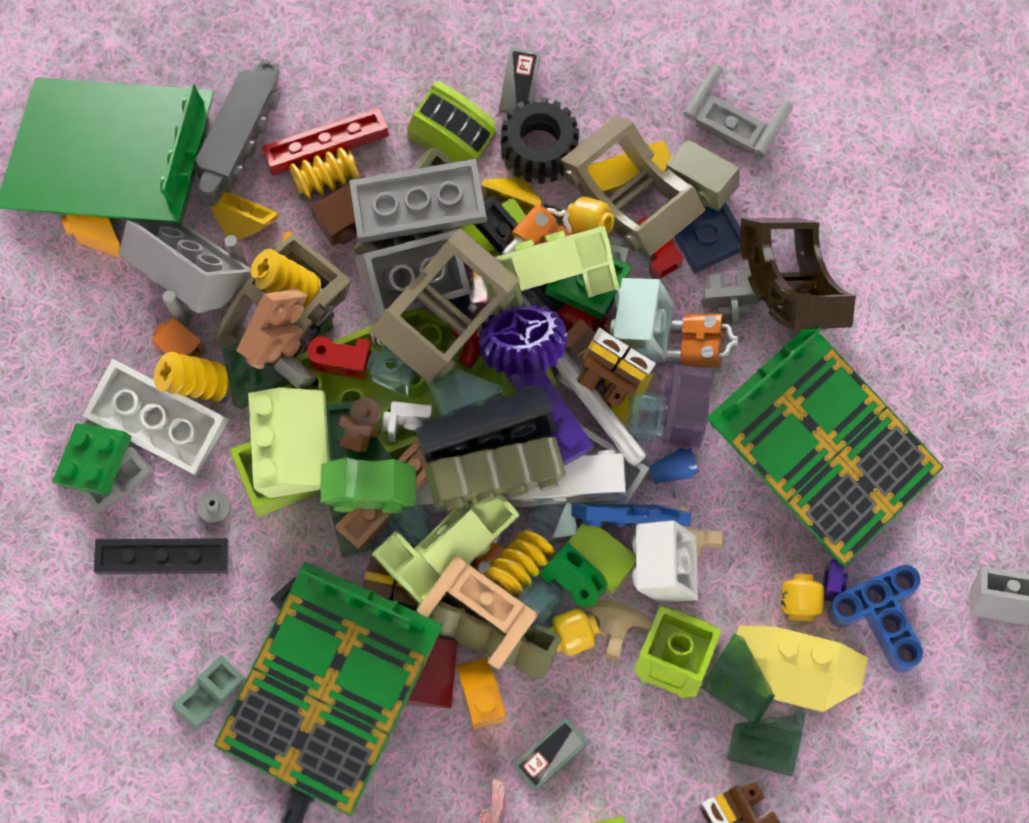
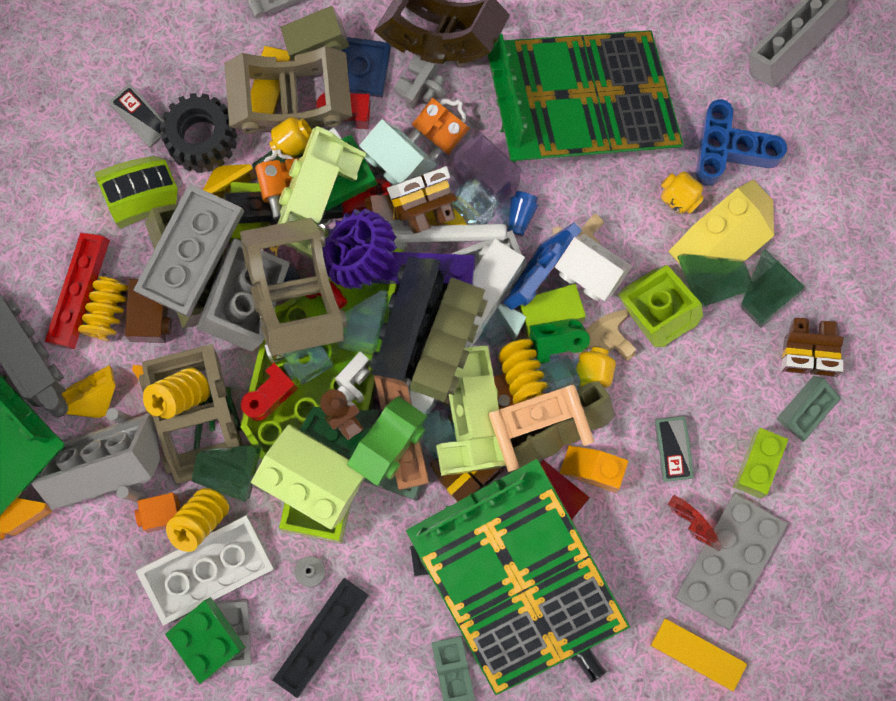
camera: 50 degrees left, 5 degrees up
(272, 328) = (215, 428): nougat plate -> none
(294, 372) = (255, 436): light grey tile -> none
(834, 580) = (683, 160): dark purple plate -> none

